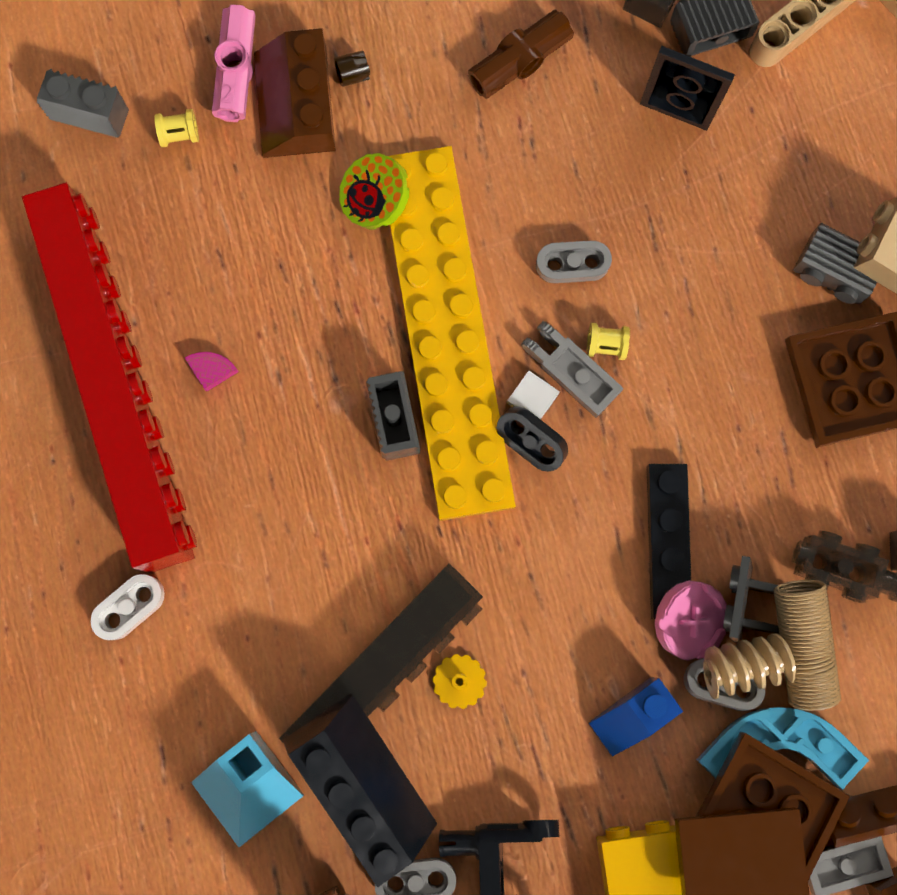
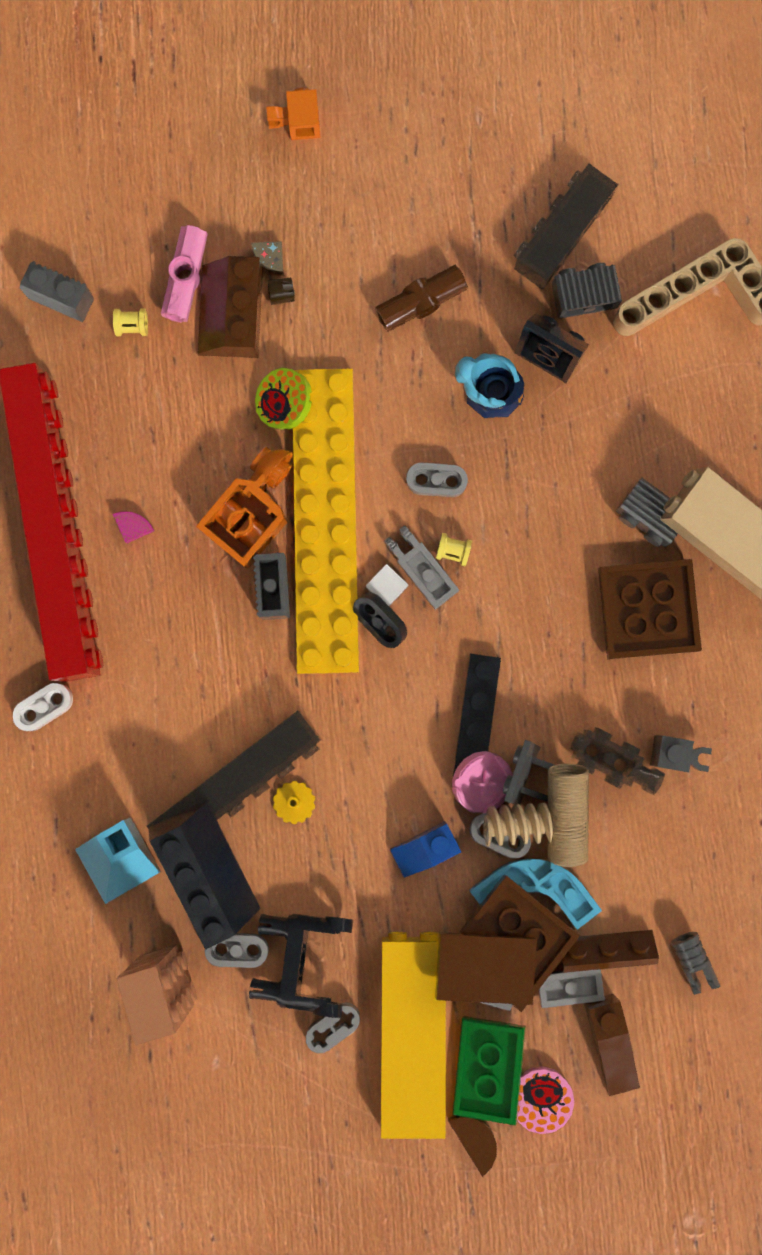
camera: 10 degrees right, 5 degrees up
(334, 30) = (270, 255): none -> dark tan tile
(349, 332) = (245, 515): none -> orange brick
(620, 140) = (490, 384): none -> piece

